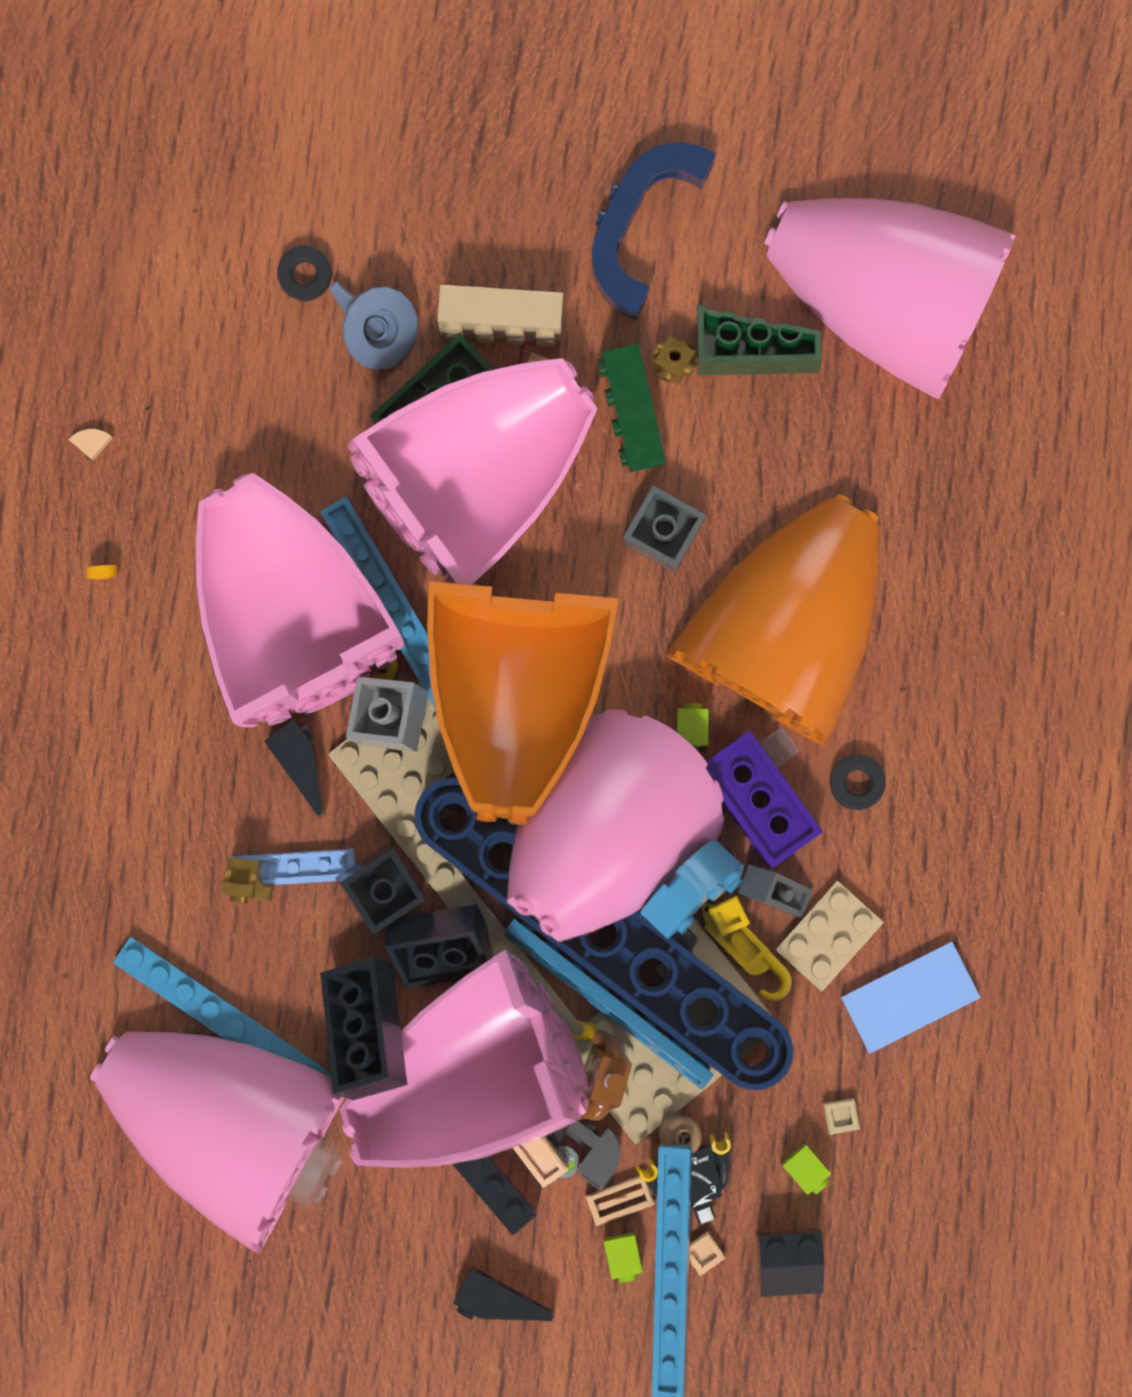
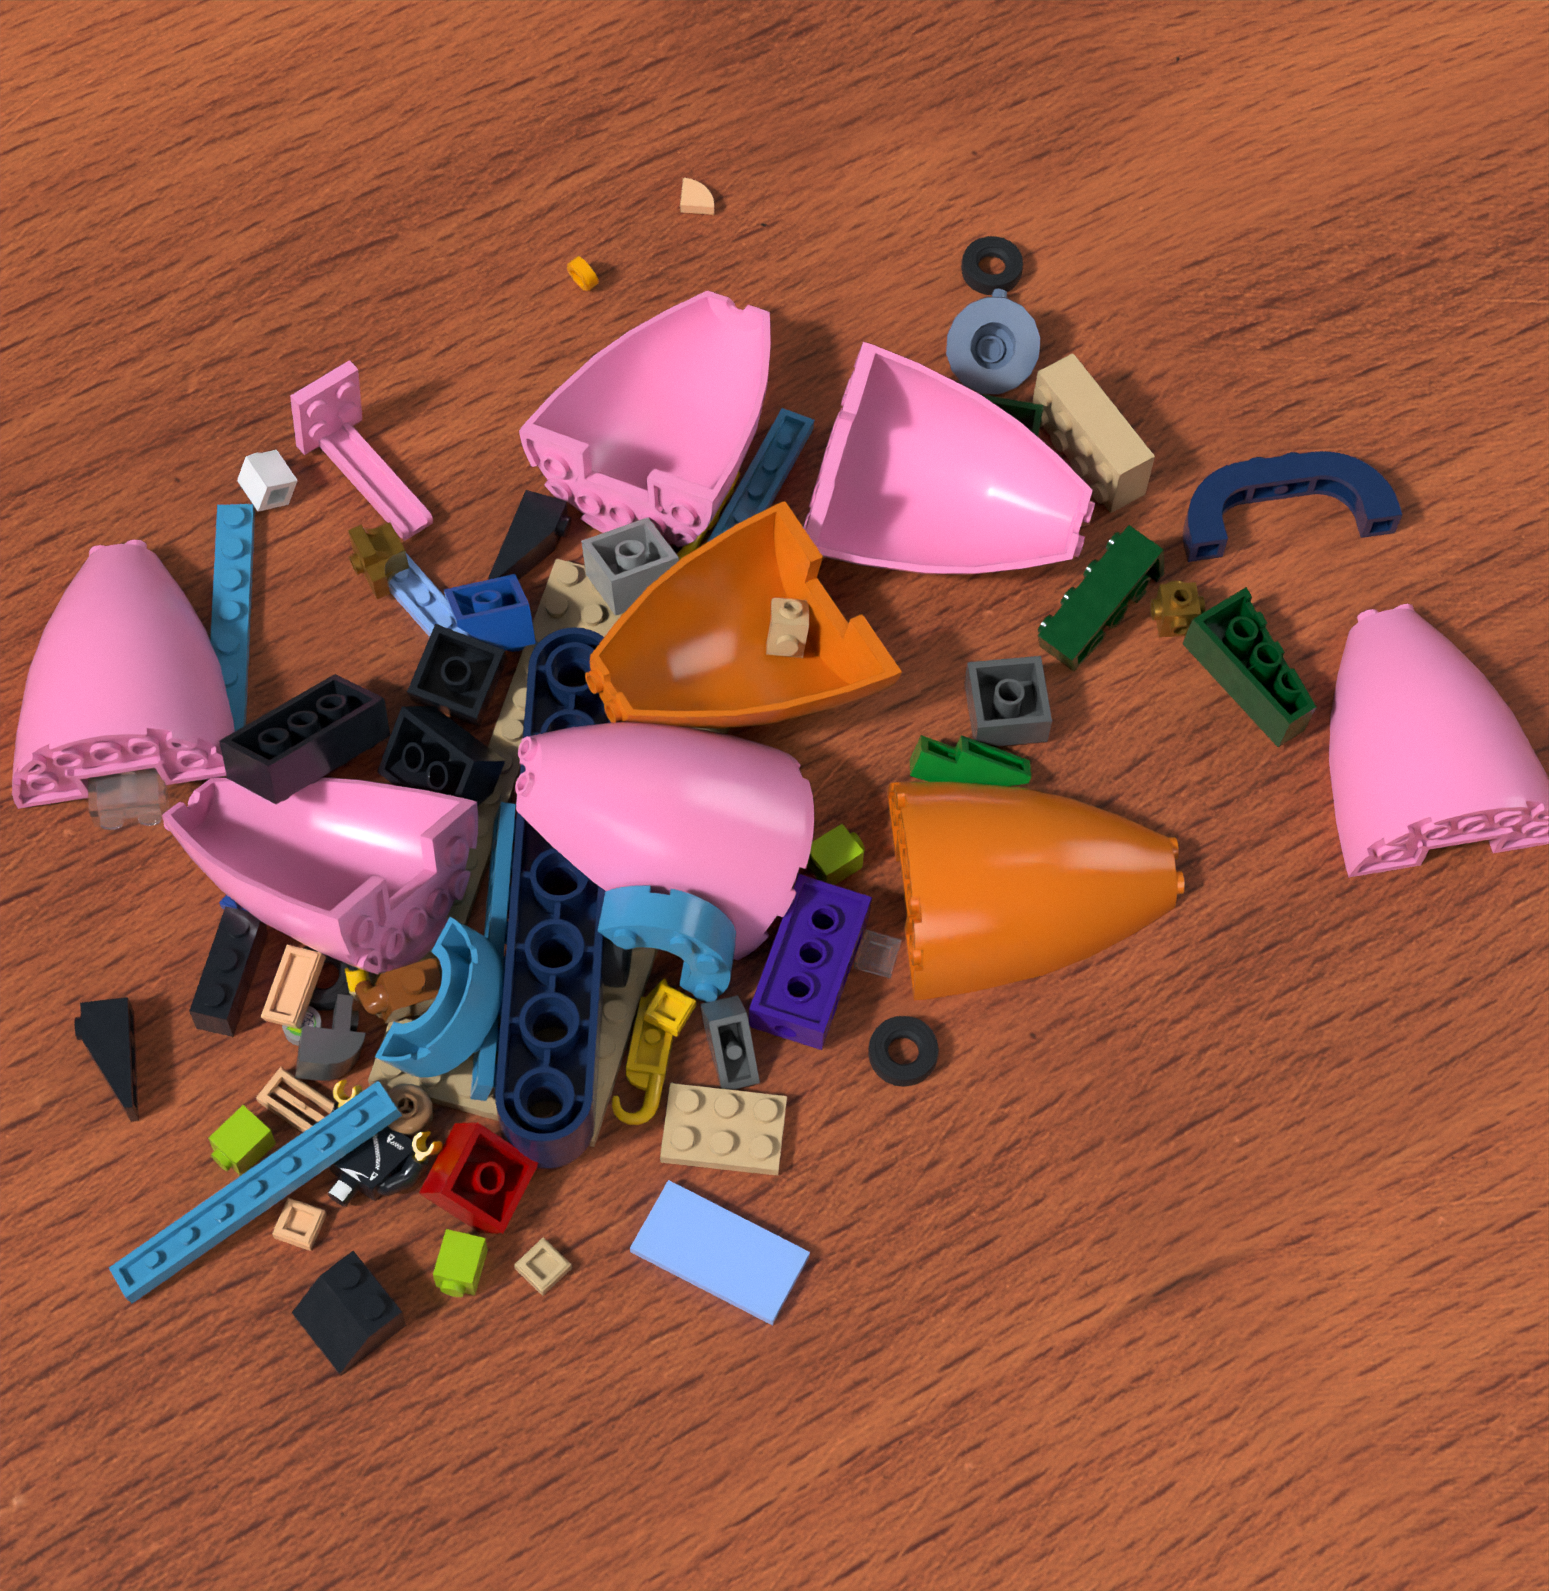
camera: 50 degrees right, 20 degrees down
(109, 842) = (325, 419): none -> bright pink bracket
(119, 915) = (267, 480): none -> white brick
(350, 833) = (493, 612): none -> blue slope
(507, 637) = (788, 627): none -> tan bracket
(651, 1057) = (461, 1012): none -> dark azure brick
(689, 590) = (967, 763): none -> green slope
(763, 1124) = (478, 1178): none -> red brick

